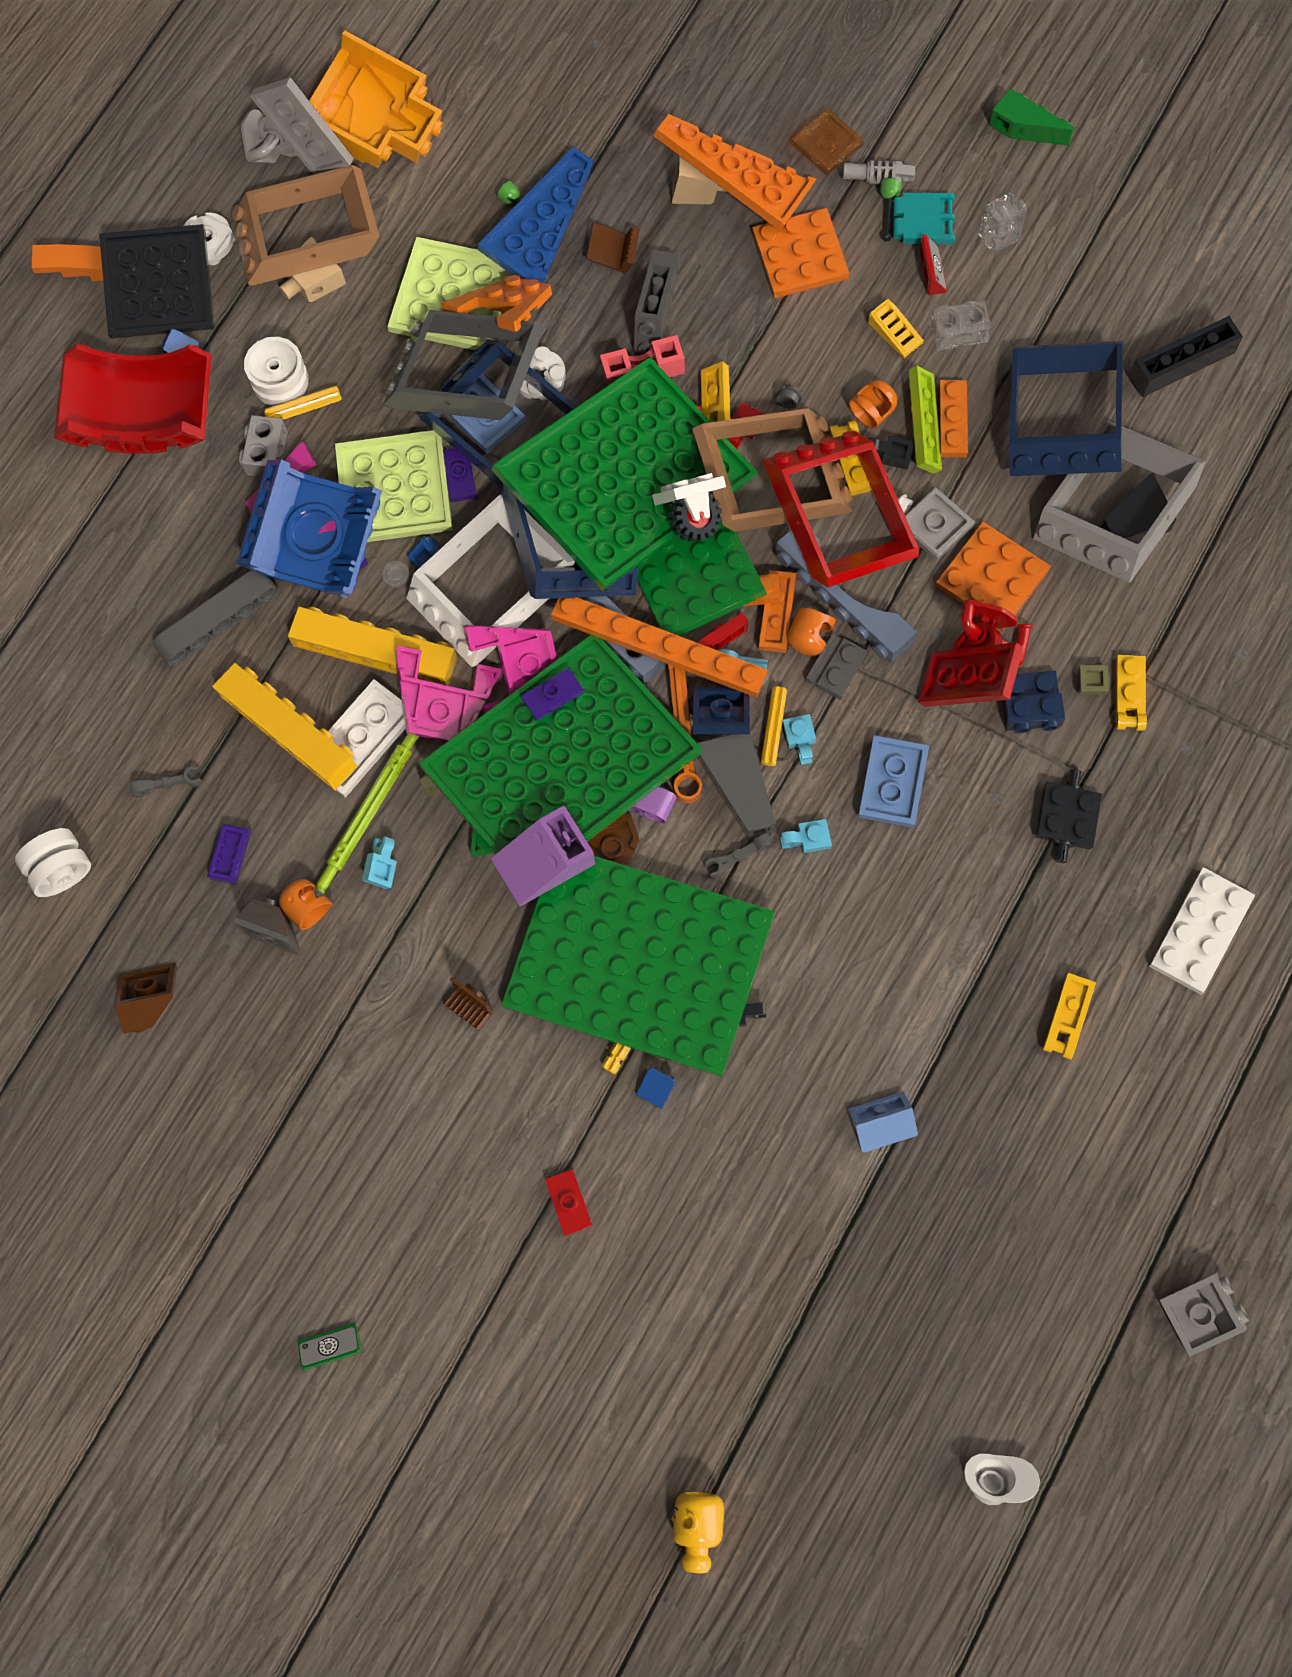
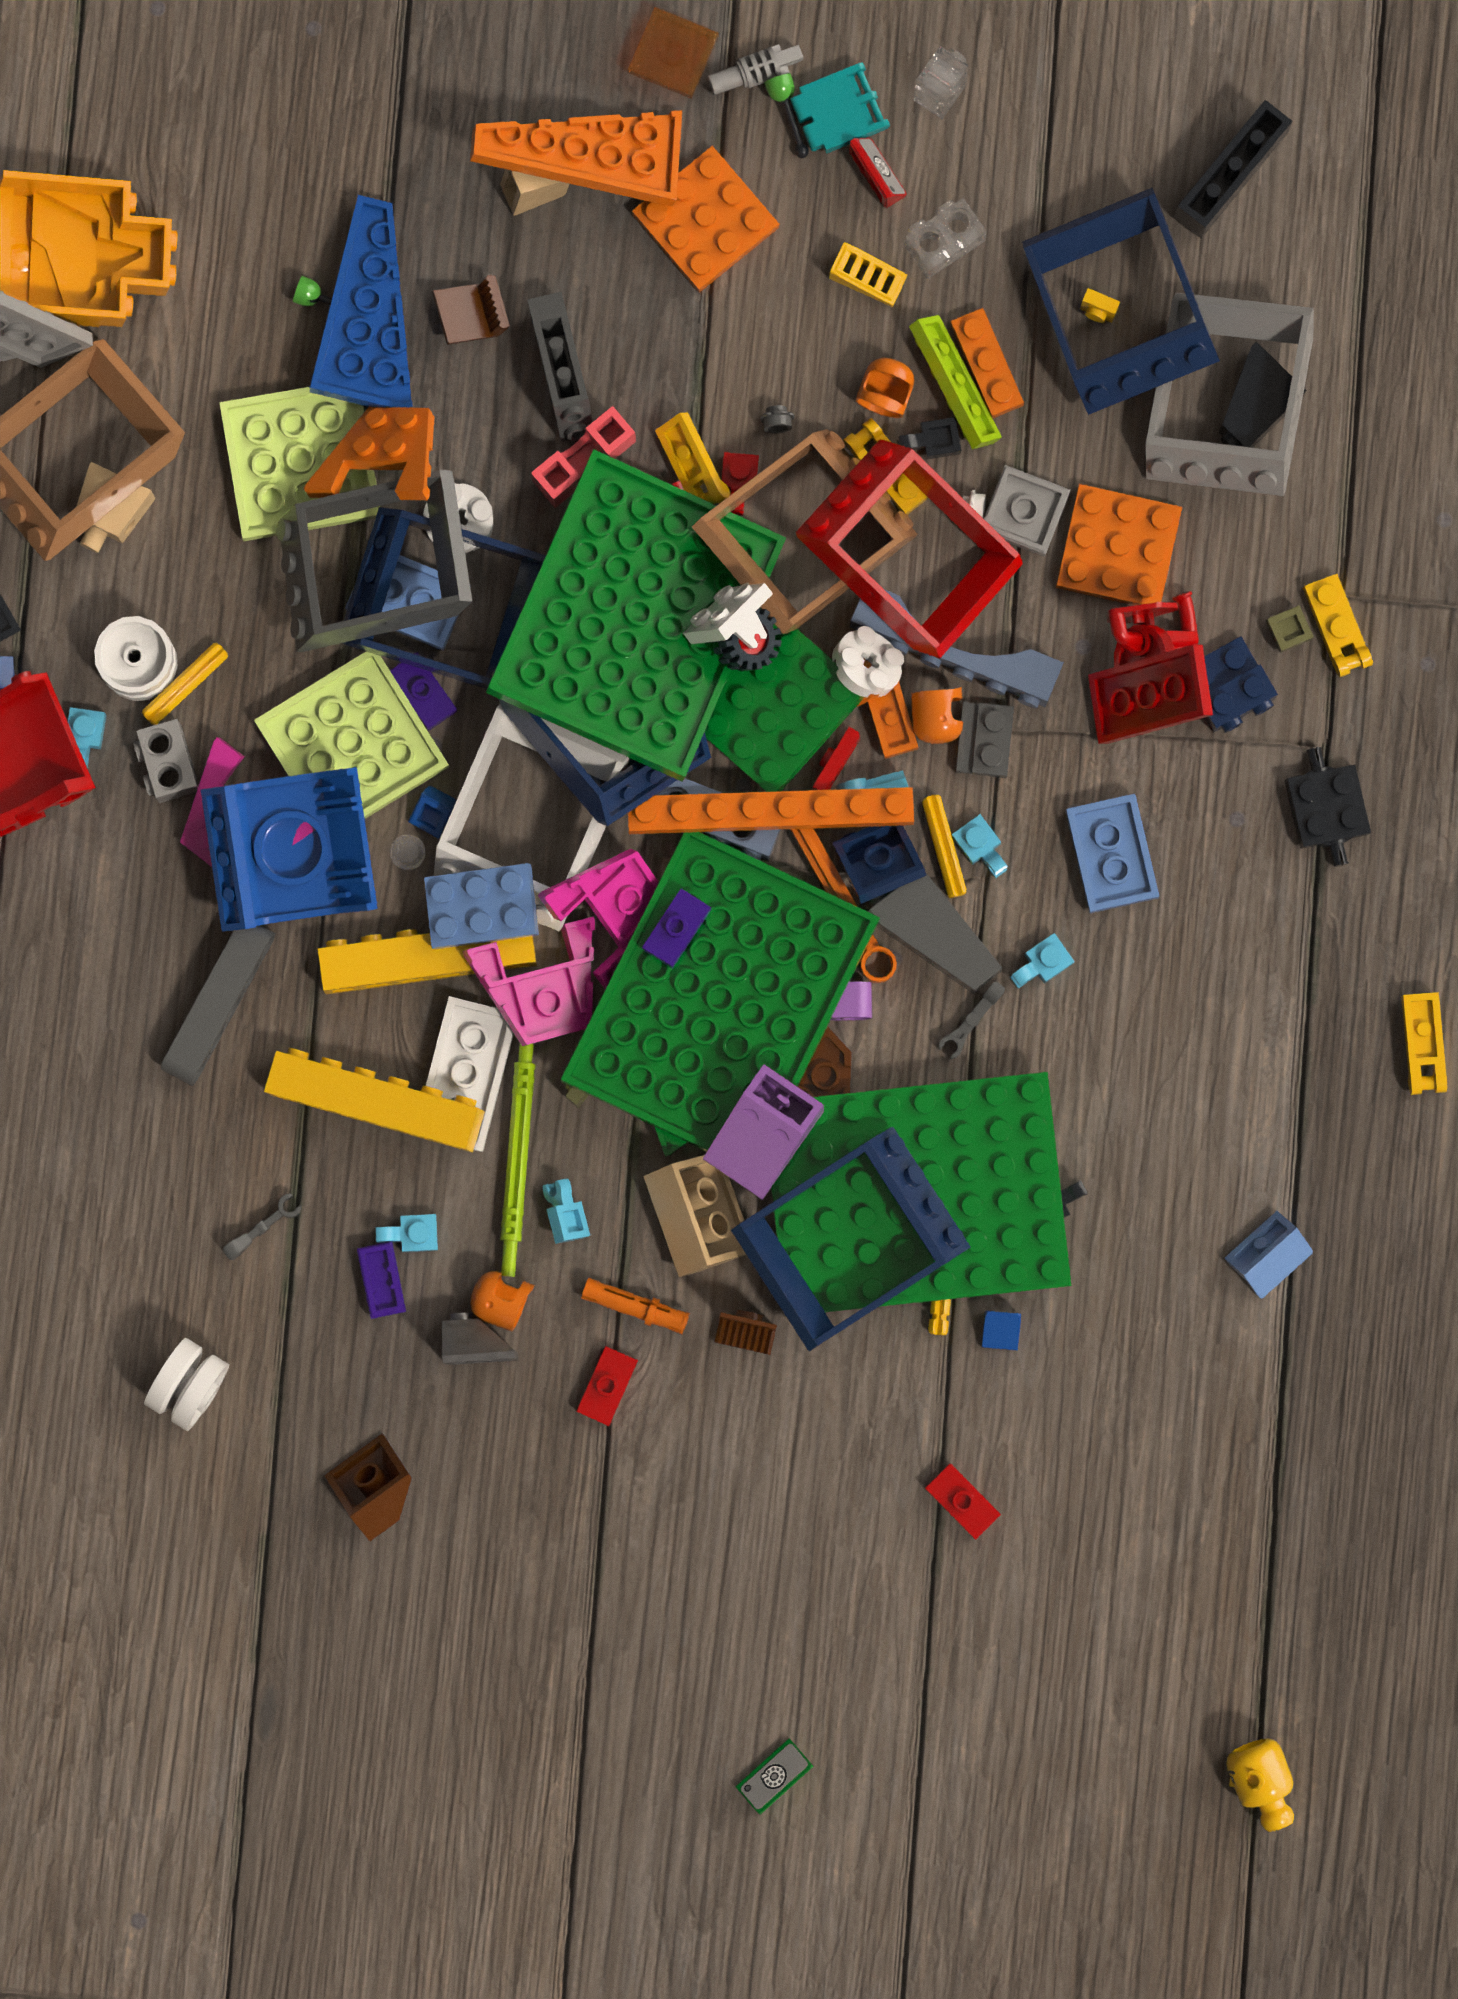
camera: 30 degrees left, 10 degrees up
(220, 408) = (87, 729): none -> medium azure plate
(269, 832) = (416, 1233): none -> medium azure plate
(350, 1000) = (607, 1386): none -> red plate
(406, 959) = (642, 1308): none -> orange pin
(423, 622) = (481, 906): none -> medium blue plate
(474, 906) = (696, 1214): none -> tan slope
(632, 954) = (912, 1194): none -> dark blue window
(781, 584) = (876, 649): none -> white plate
(1050, 410) = (1099, 306): none -> yellow plate

